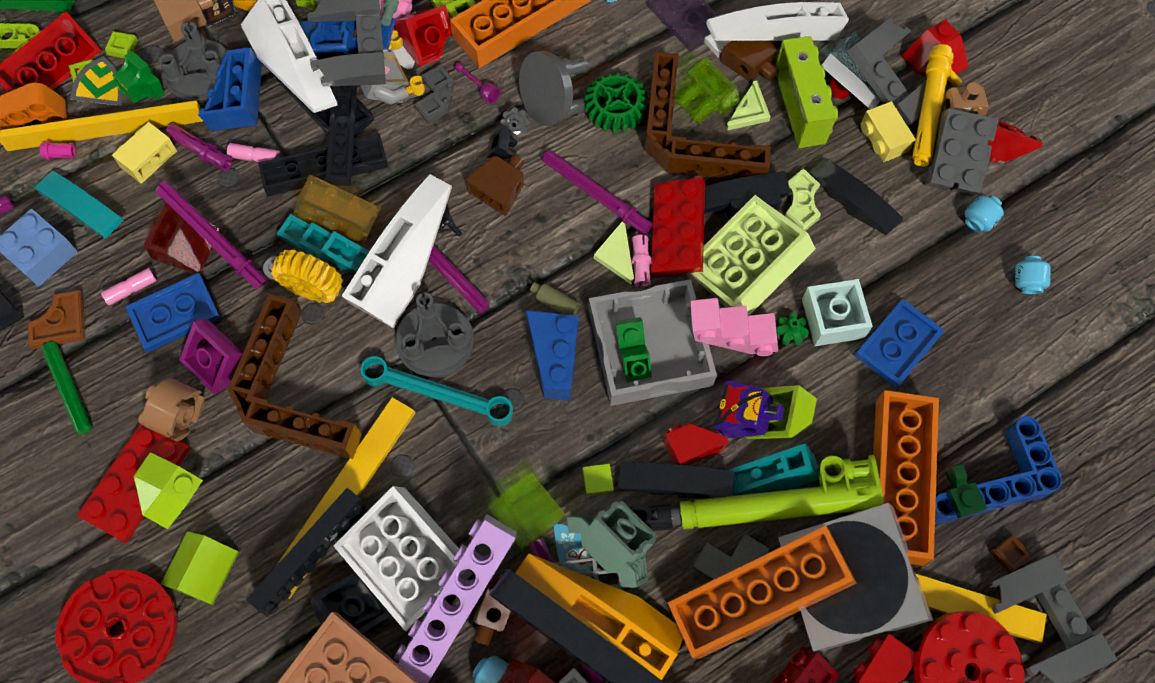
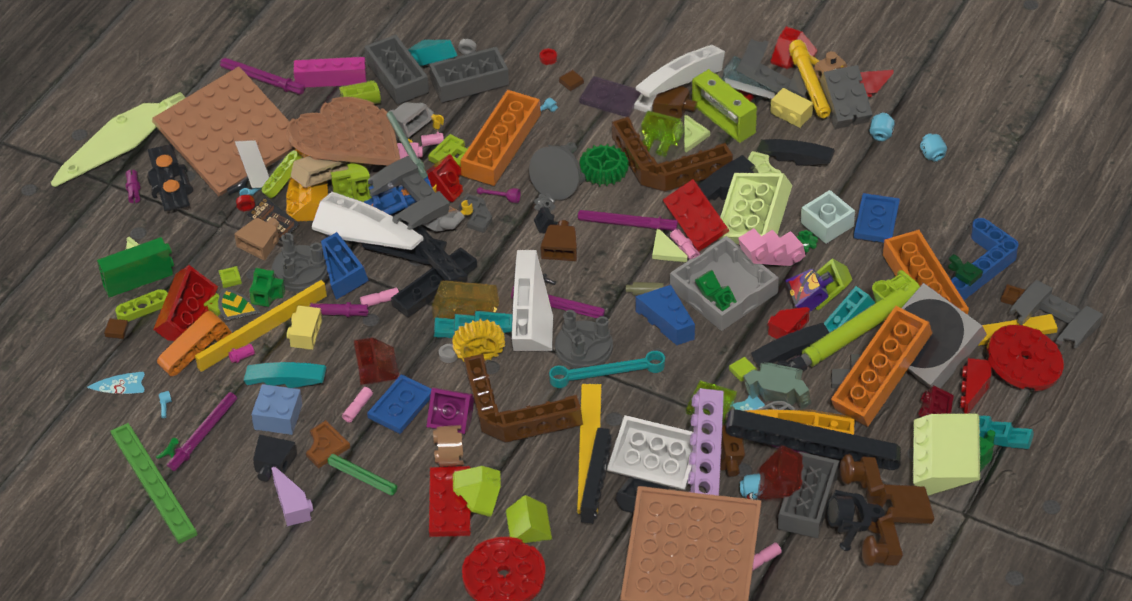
camera: 25 degrees left, 20 degrees down
(211, 235) = (398, 345): magenta axle -> none

